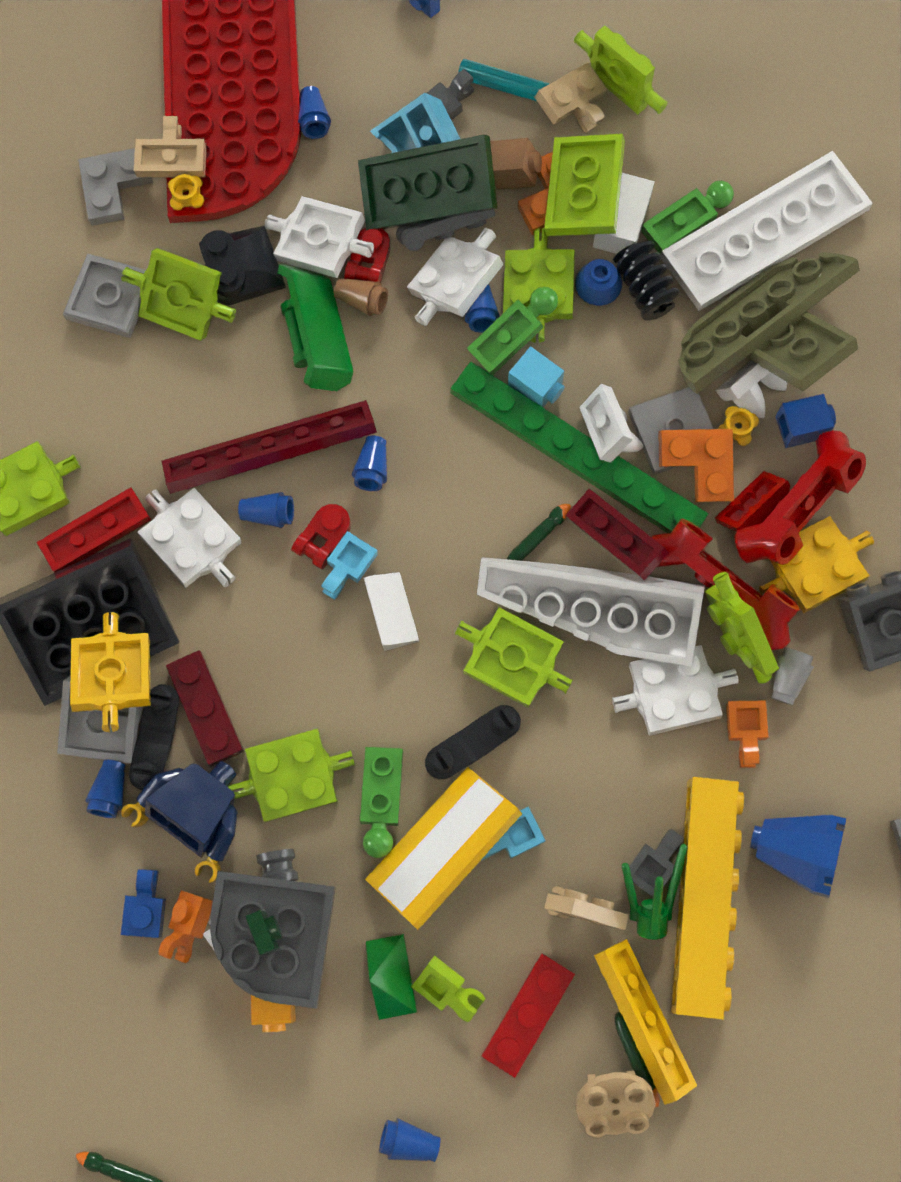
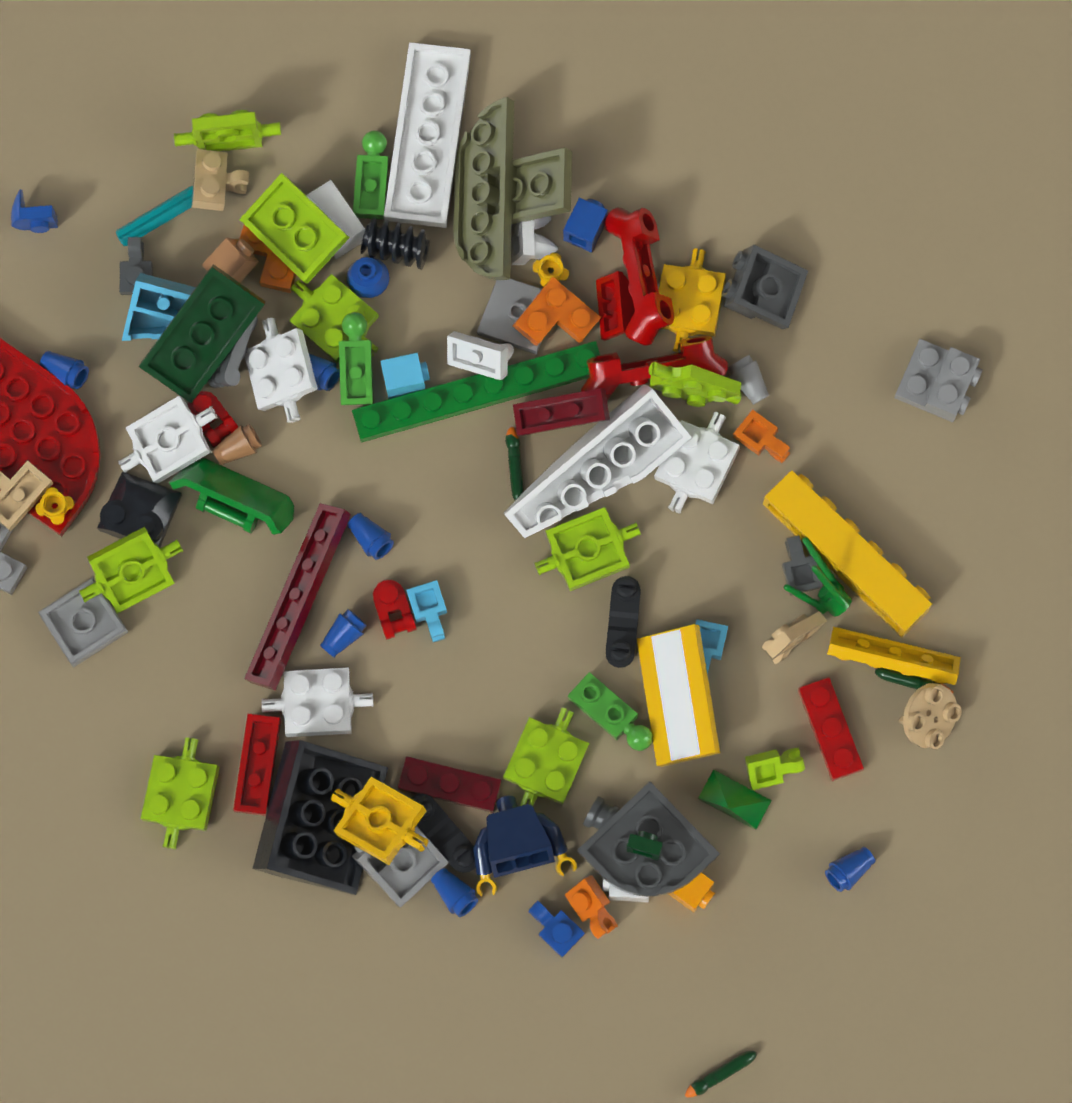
camera: 50 degrees left, 0 degrees up
(391, 610) = (485, 605): white slope -> none
(801, 849) = (866, 466): blue cone -> none

